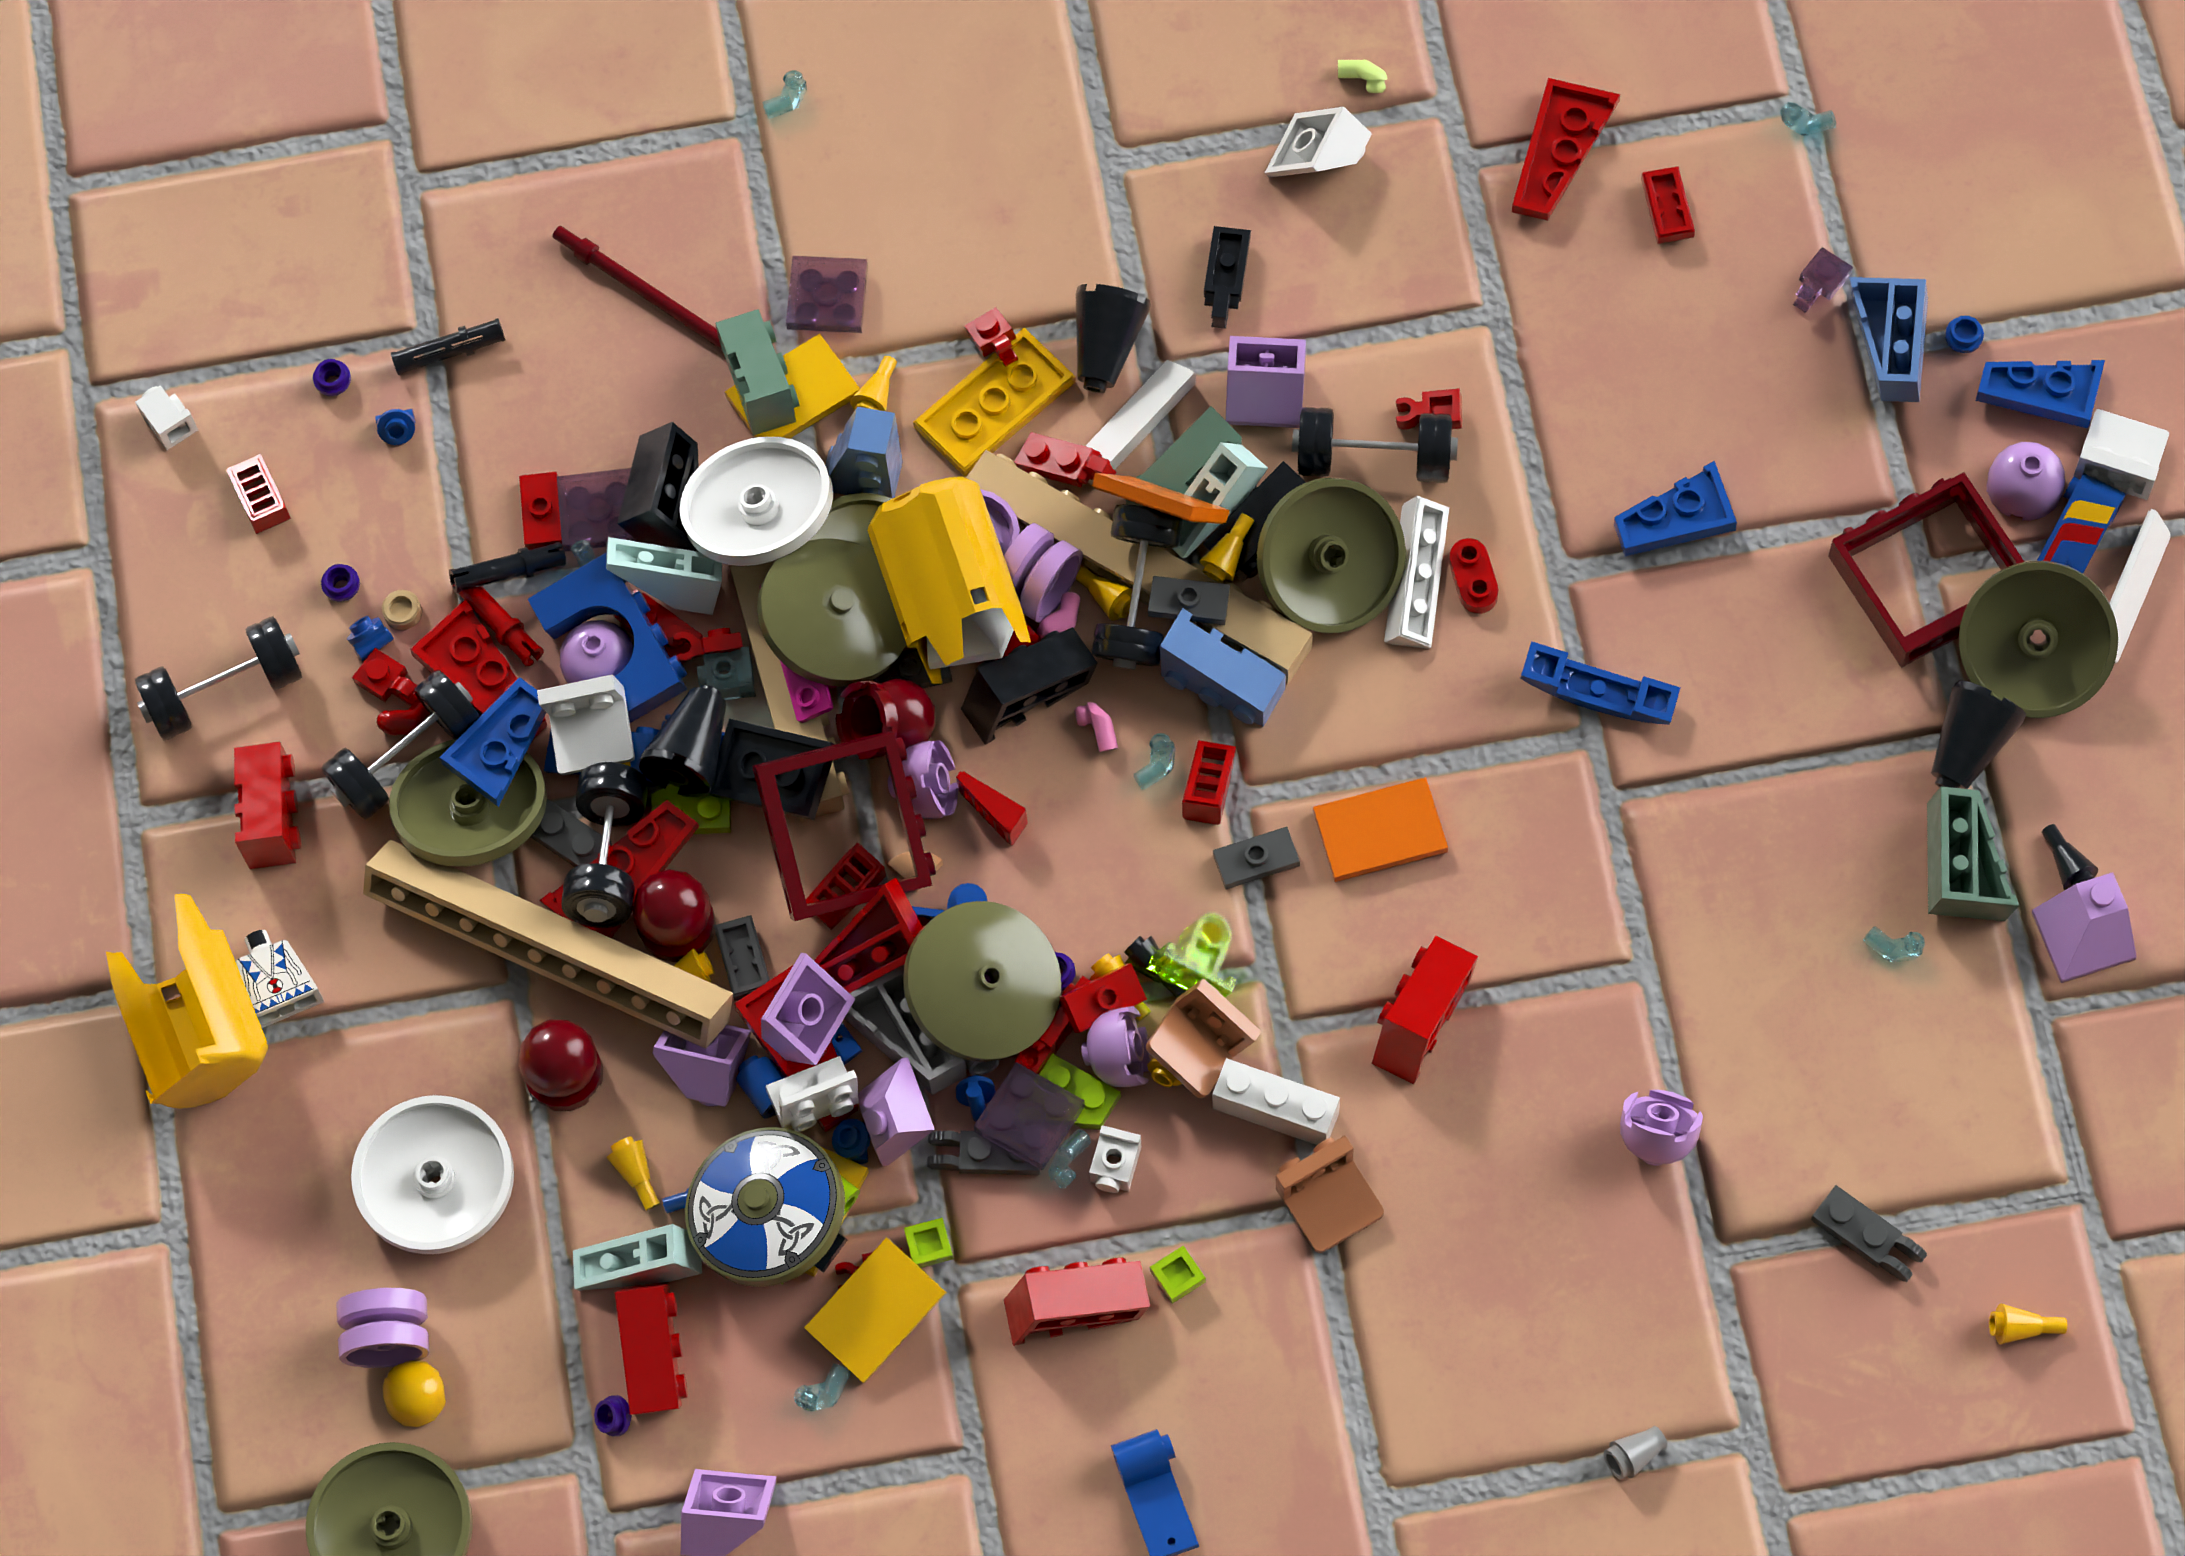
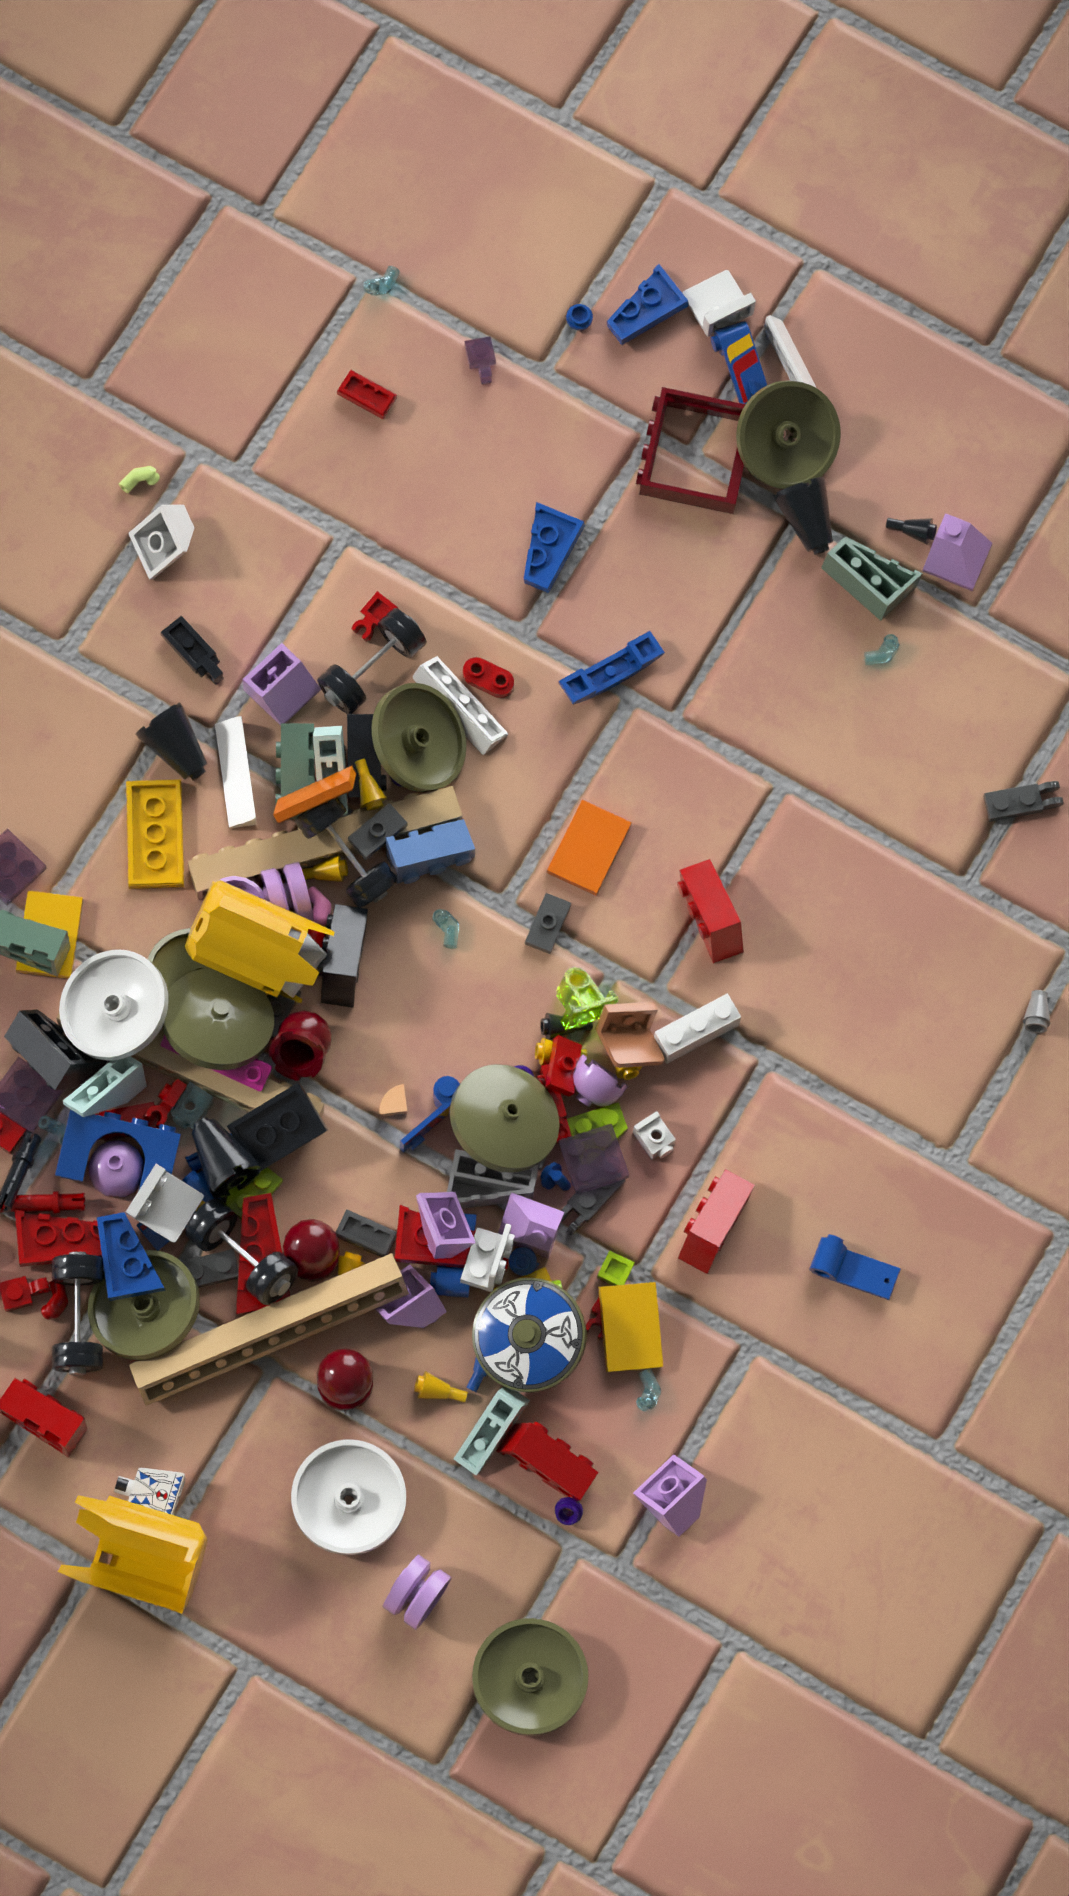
camera: 60 degrees left, 5 degrees up
(414, 1393) = (461, 1607): yellow hair -> none
(780, 838) = (327, 1153): dark red window -> none
(846, 865) = (368, 1123): red slope -> none
(866, 455) = (136, 925): medium blue wedge -> none
(873, 940) = (428, 1157): red wedge -> none
(875, 391) = (94, 895): yellow cone -> none
(929, 767) = (352, 1056): lavender cylinder -> none
(993, 334) = (116, 800): red plate -> none
(998, 810) = (403, 1031): red slope -> none
(1061, 460) = (229, 827): hinge -> none
(1065, 1154) = (634, 1168): clear light blue arm -> none
(1101, 723) = (400, 936): bright pink arm -> none
(1177, 1274) = (745, 1157): lime plate -> none
(1205, 805) = (493, 924): red slope -> none
(1328, 1194) = (770, 1045): nougat bracket -> none
(1561, 139) = (276, 412): red wing -> none
(1660, 1126) = (881, 849): lavender cylinder -> none
(1893, 329) = (550, 350): medium blue wedge -> none
(2026, 481) = (689, 361): lavender cylinder -> none

